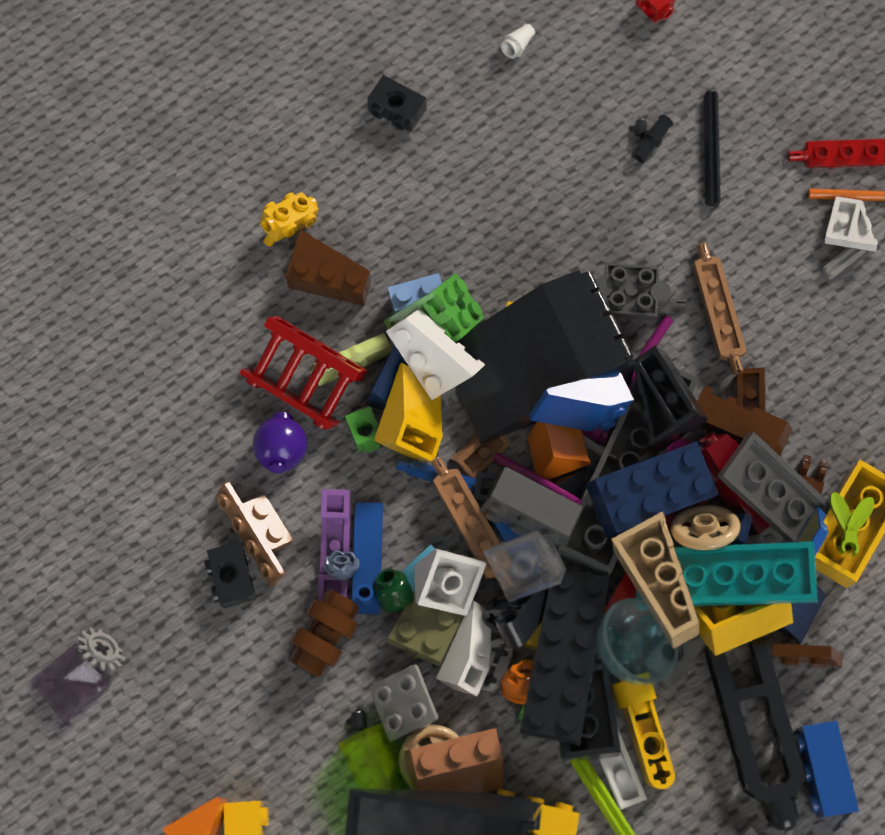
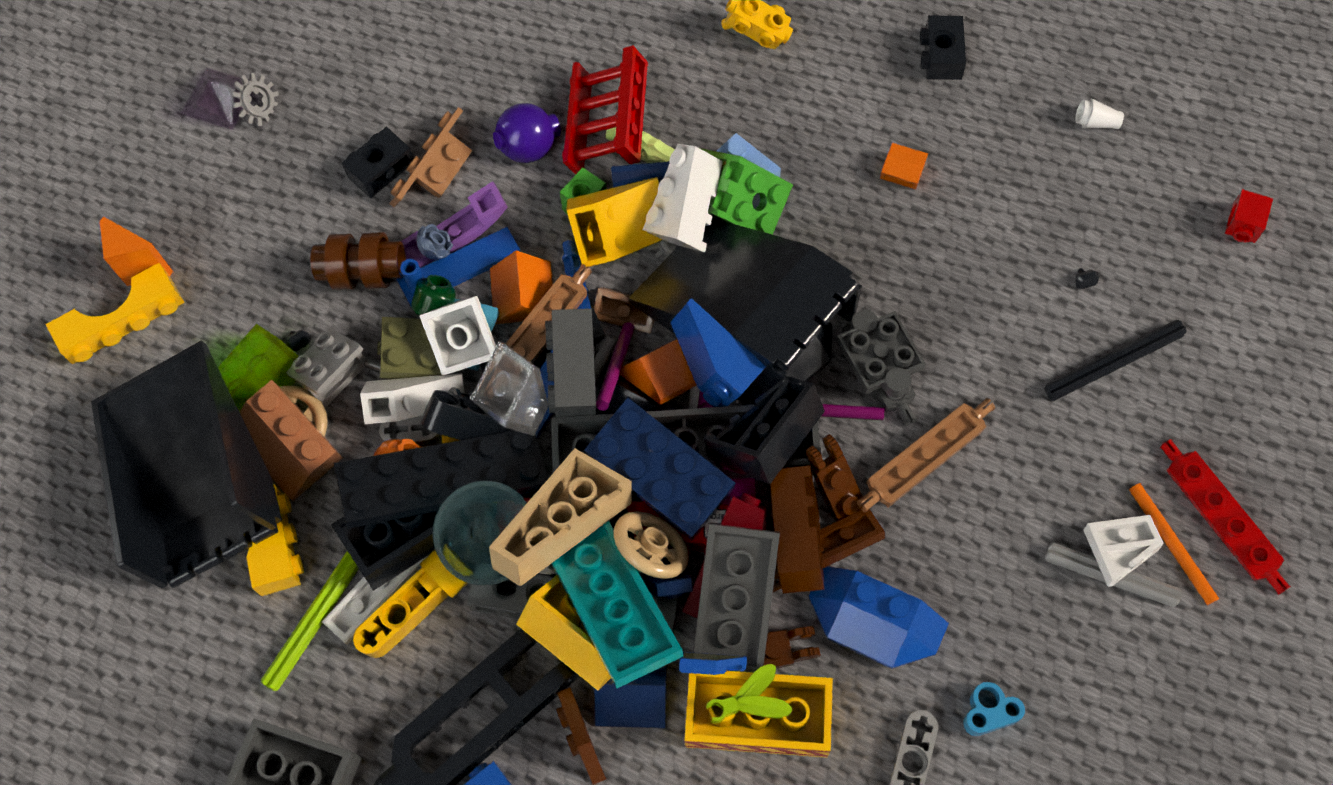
camera: 65 degrees right, 5 degrees down
(326, 272) = (721, 79): reddish brown wedge -> none
(417, 520) = (519, 285): none -> orange slope
(479, 189) = (904, 166): none -> orange piece
(652, 138) = (1081, 295): black pin -> none
(713, 376) = (835, 479): none -> reddish brown hinge
(823, 410) = (876, 618): none -> blue wedge

